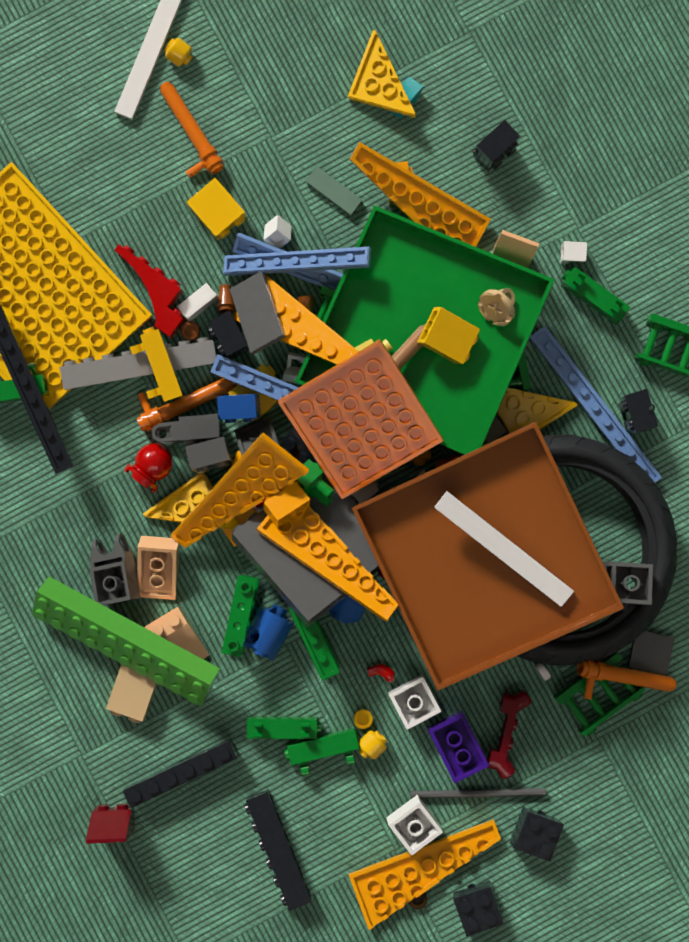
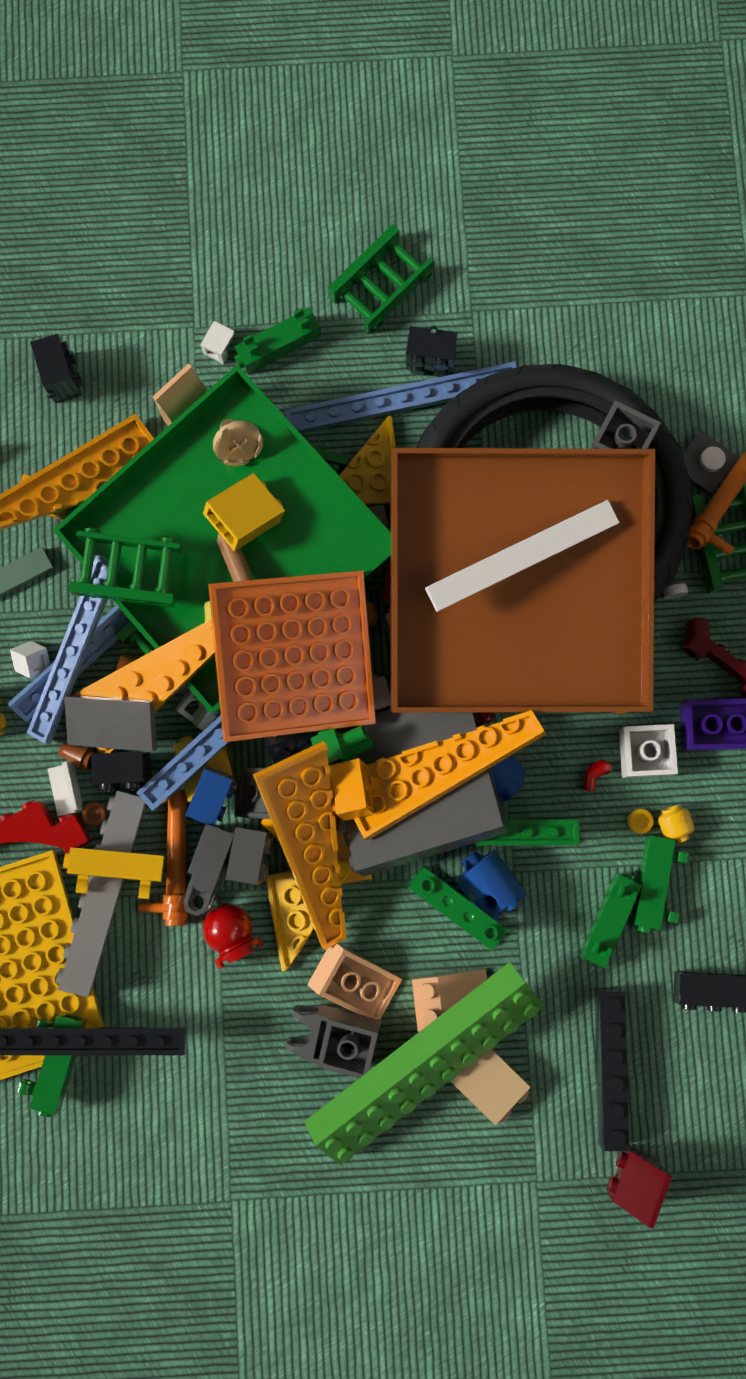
camera: 60 degrees left, 5 degrees down
(349, 269) = (110, 588): none -> green fence
(654, 655) = (712, 459): none -> white tile

